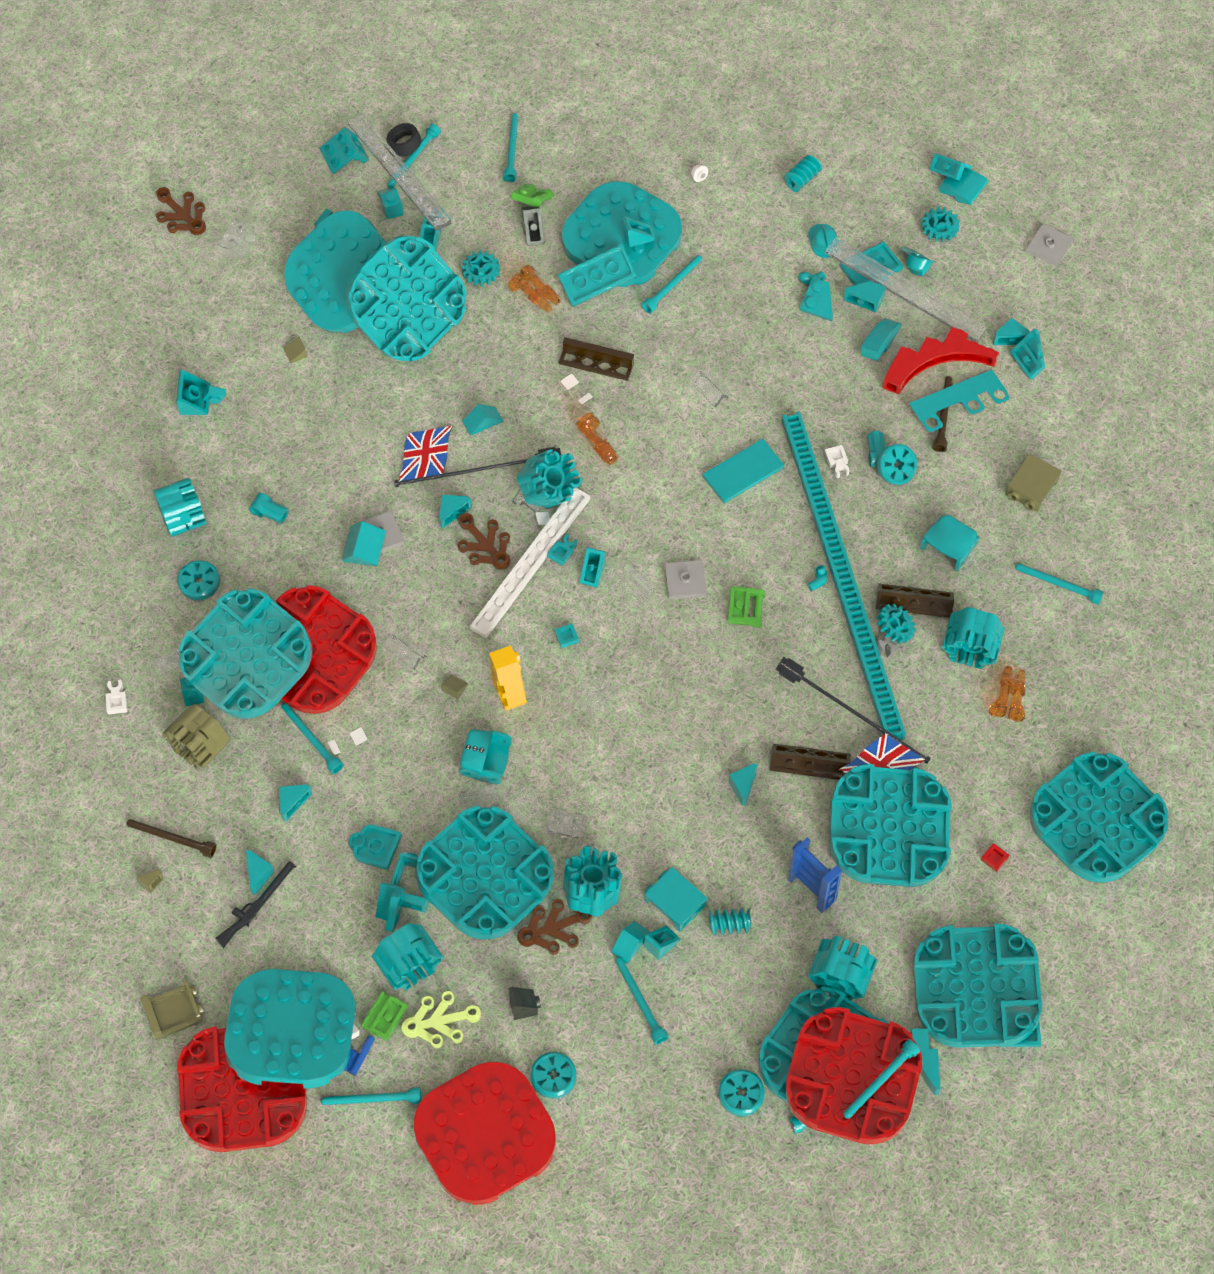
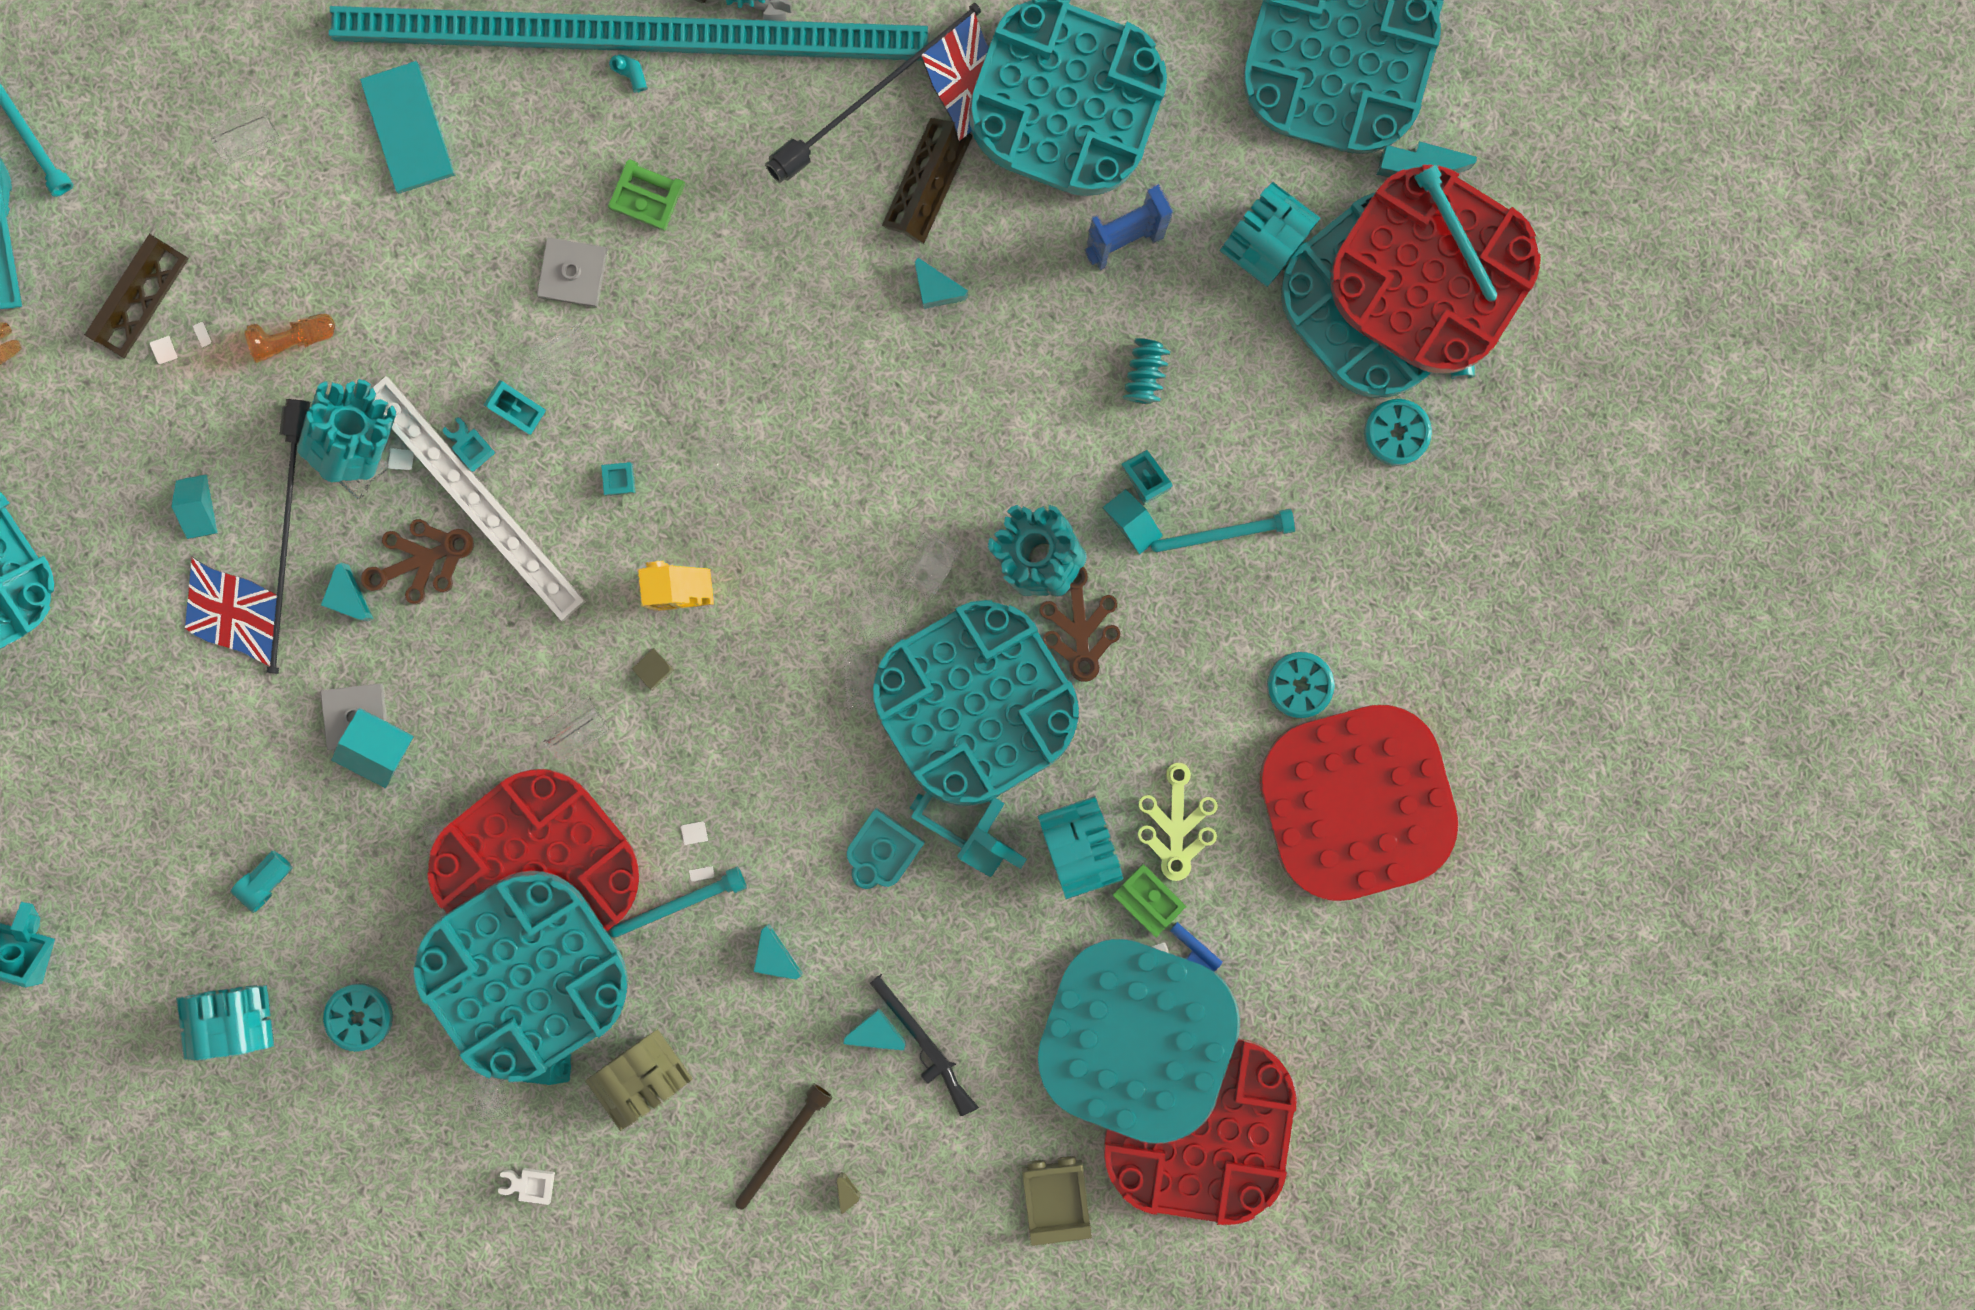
camera: 75 degrees left, 25 degrees up
(412, 1095) = (1276, 890): teal piece -> none
(485, 755) = (785, 654): teal piece -> none
(523, 1002) = (1189, 698): pearl dark grey slope -> none
(676, 898) = (1088, 439): teal panel -> none

